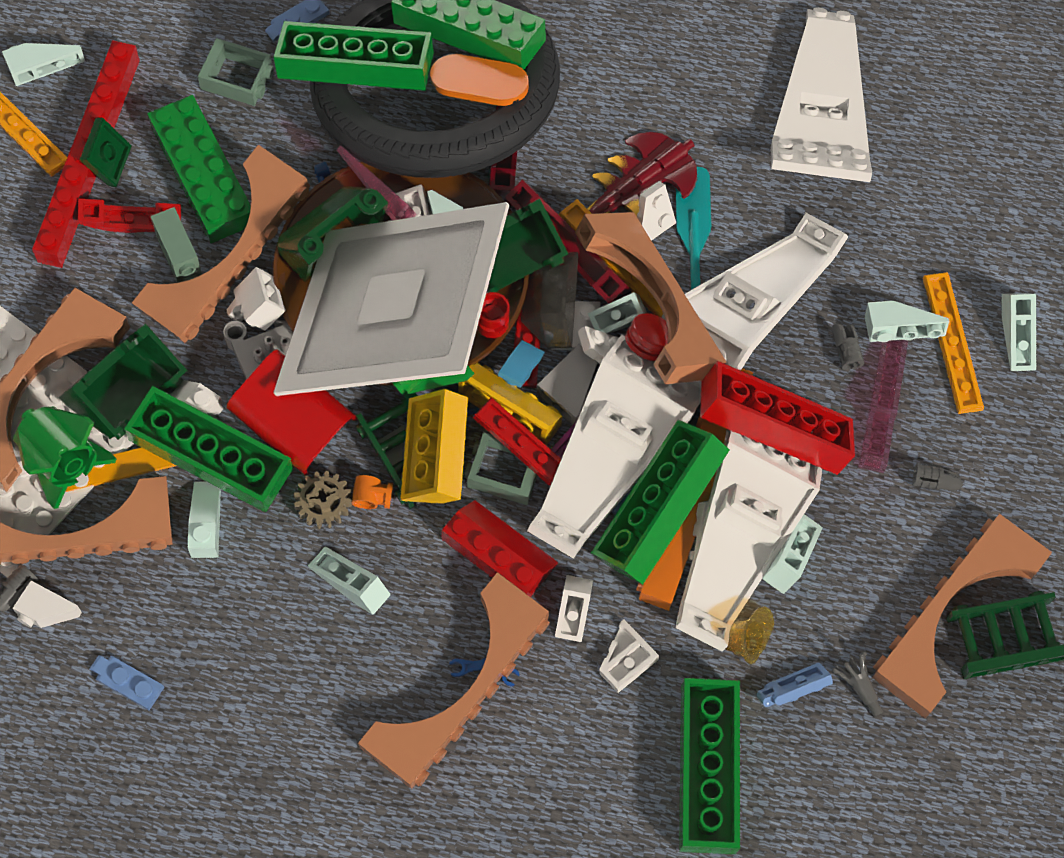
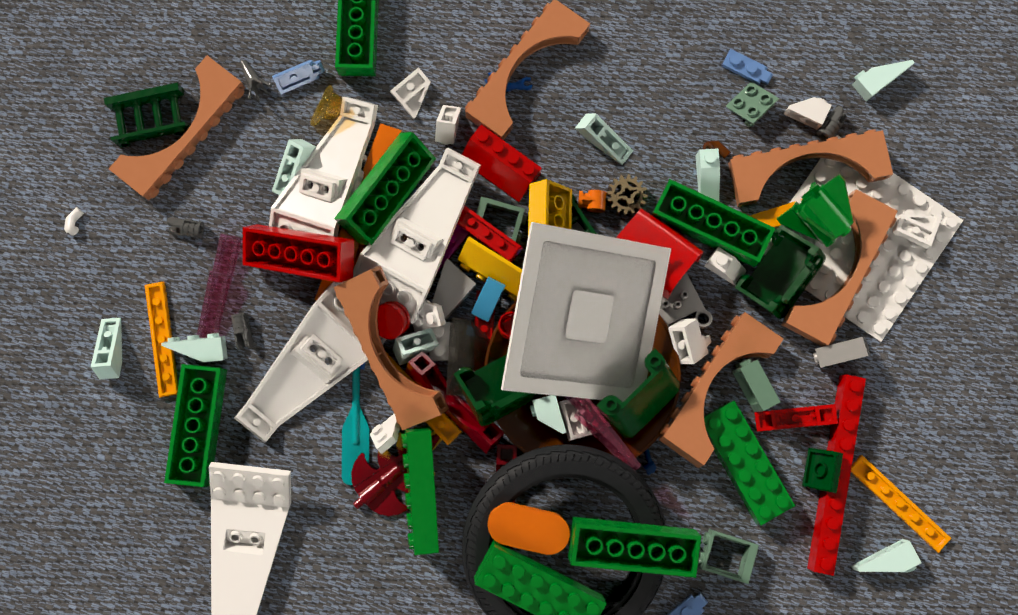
camera: 175 degrees left, 15 degrees up
(49, 285) = (841, 352): none -> light grey slope
(126, 624) = (752, 103): none -> sand green hinge
(187, 566) = (723, 151): none -> reddish brown arm
(611, 143) = (421, 491): none -> green brick
(895, 232) = (195, 425): none -> green brick

